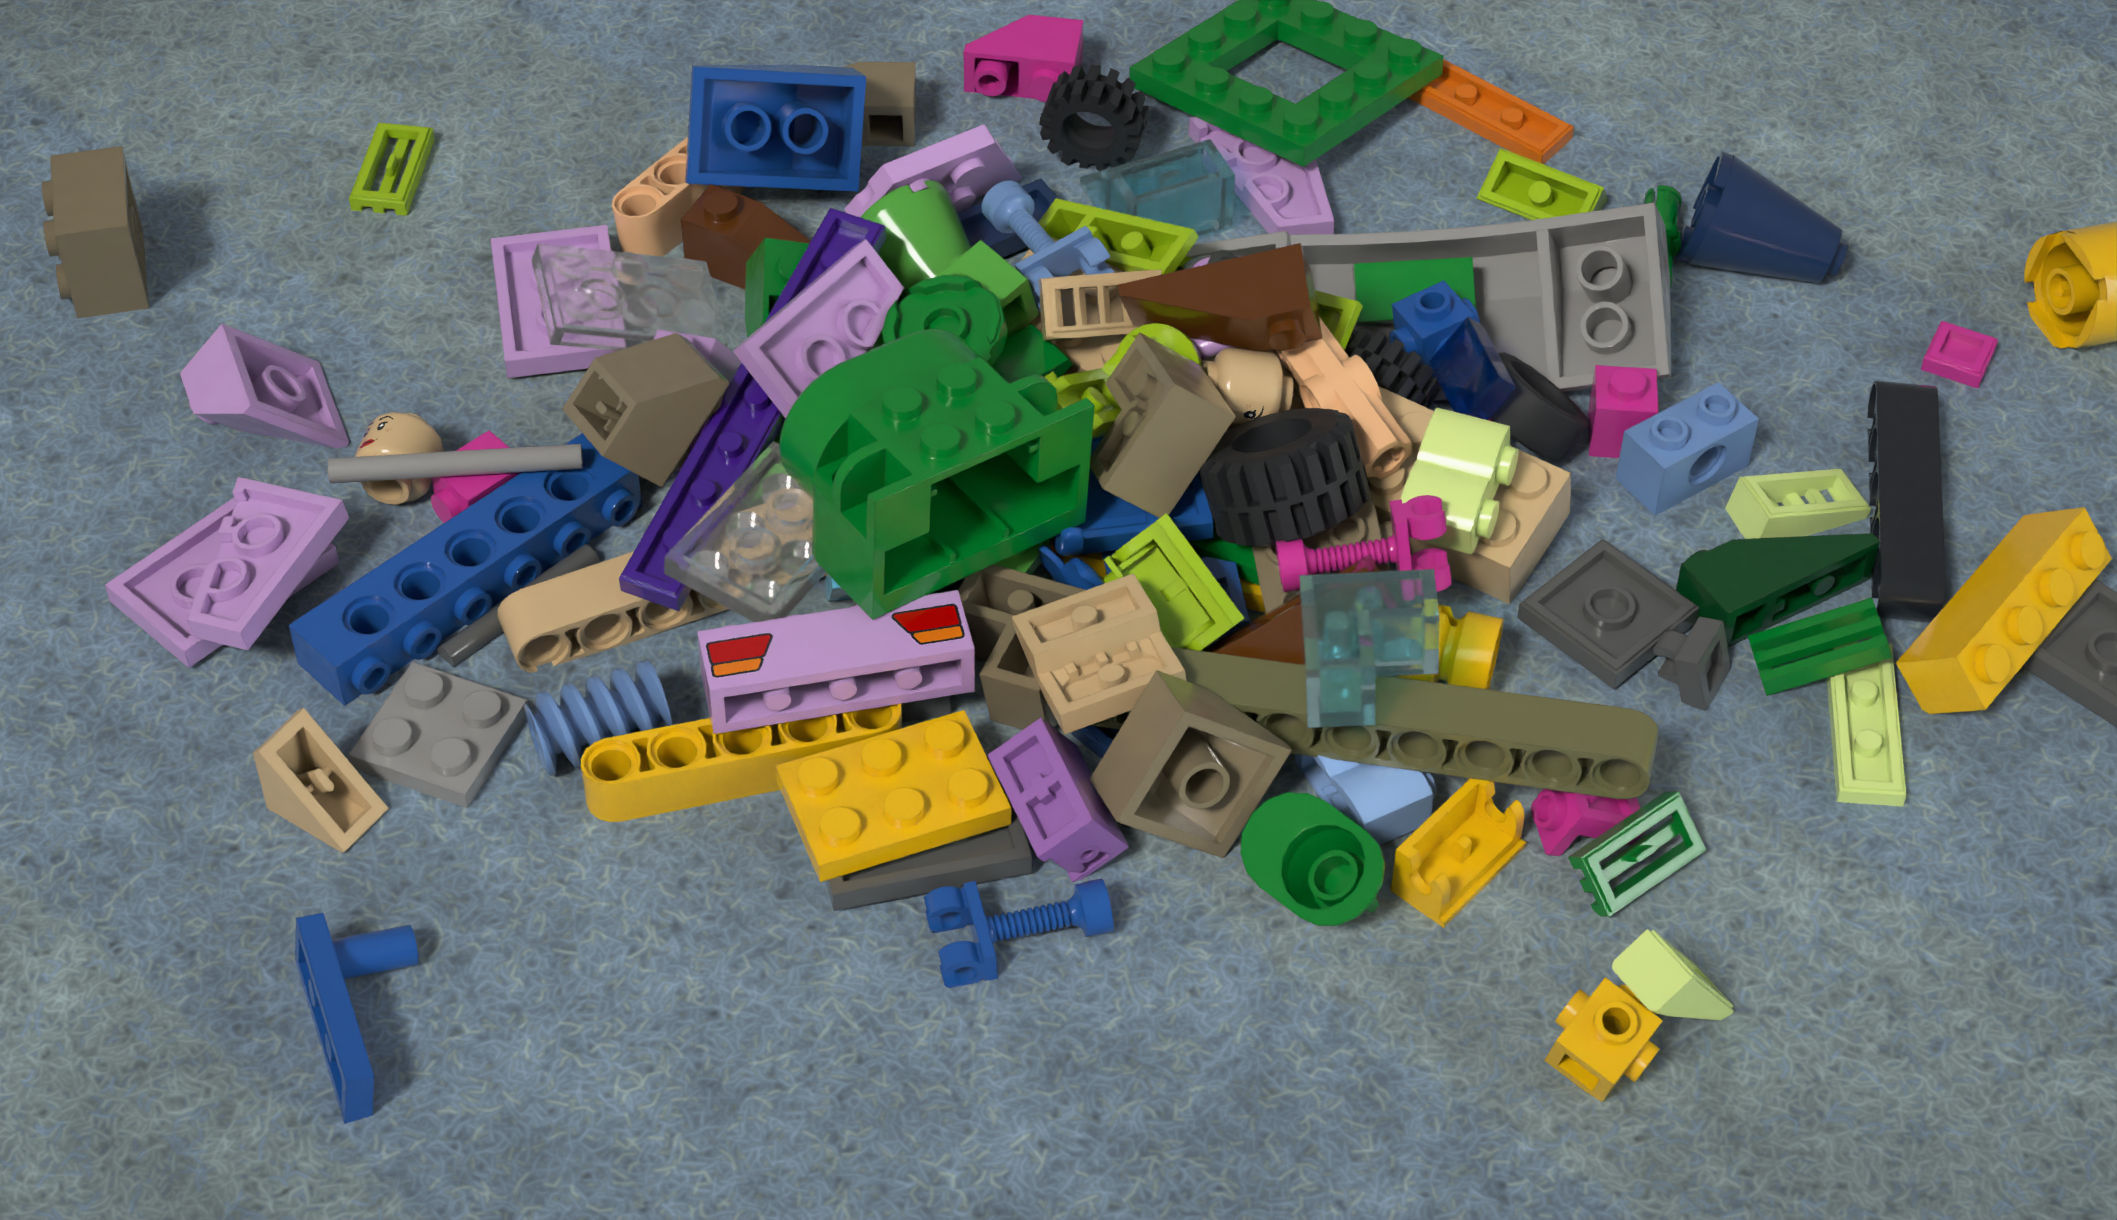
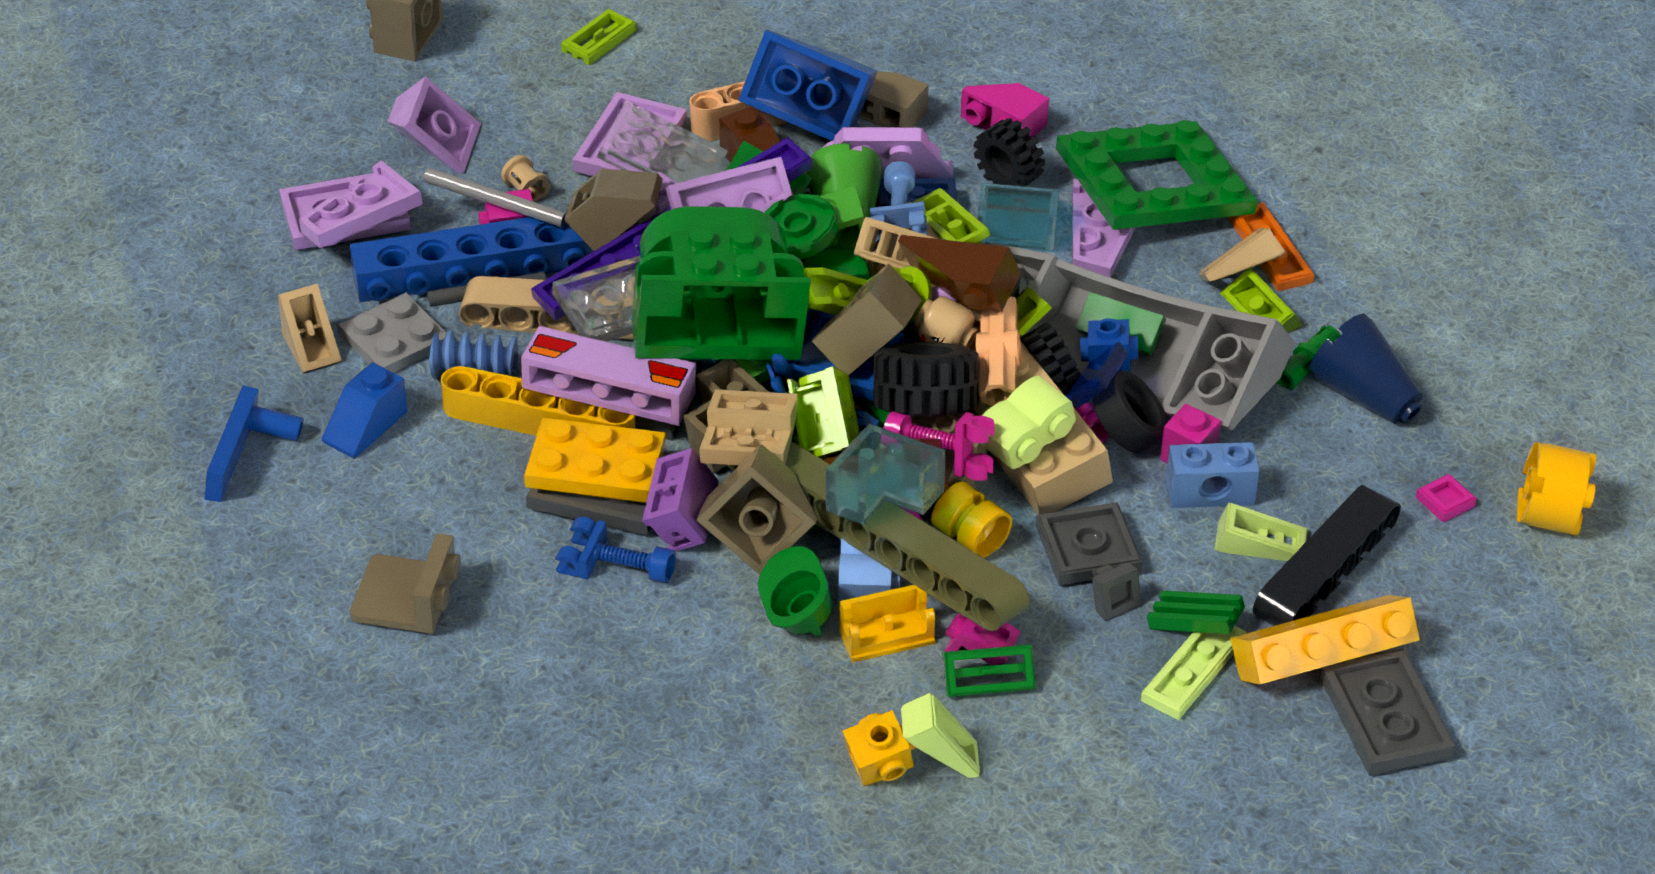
camera: 30 degrees right, 5 degrees down
(394, 435) = (481, 172): tan head -> none
(456, 416) = (525, 177): none -> tan bush
(496, 871) = (366, 410): none -> blue slope
(770, 1121) = (407, 591): none -> dark tan bracket
(1486, 133) = (1251, 251): none -> tan slope
(1773, 579) = (1198, 564): dark green slope -> none

